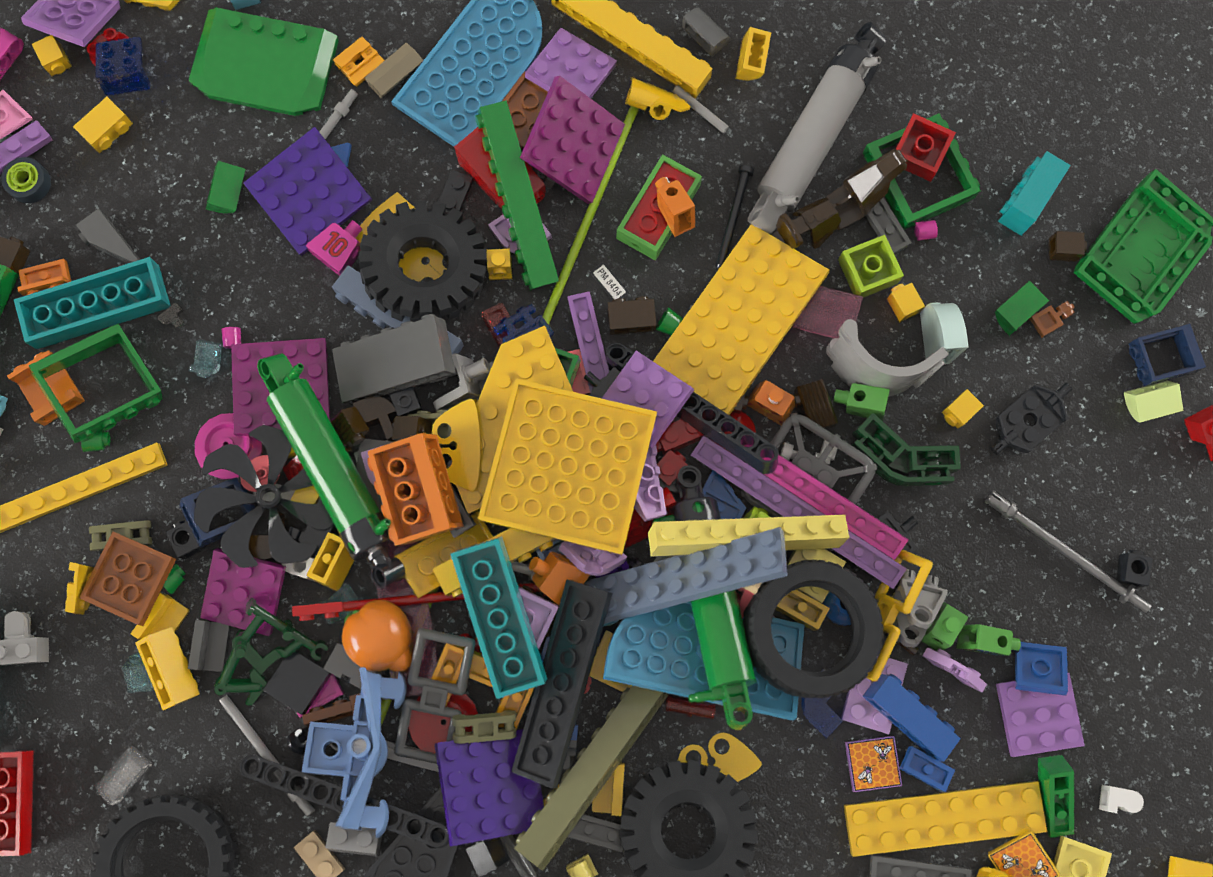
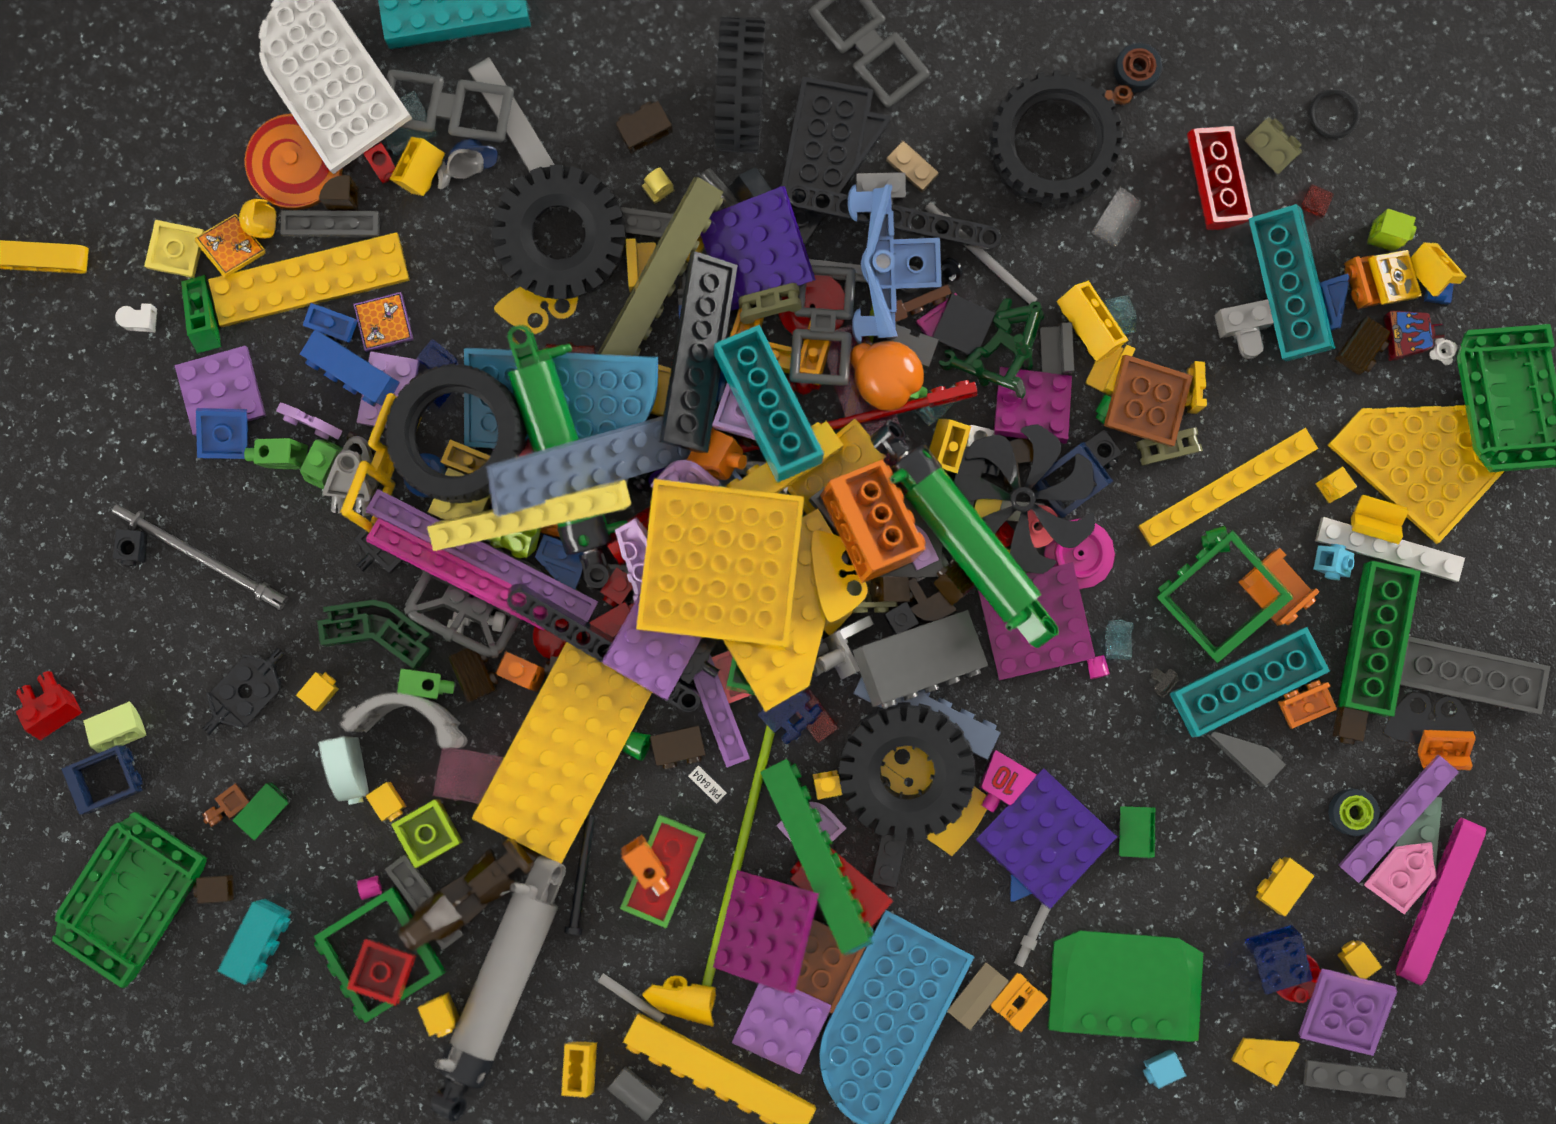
camera: 170 degrees right, 5 degrees up
(872, 111) = (439, 1015): none -> yellow brick

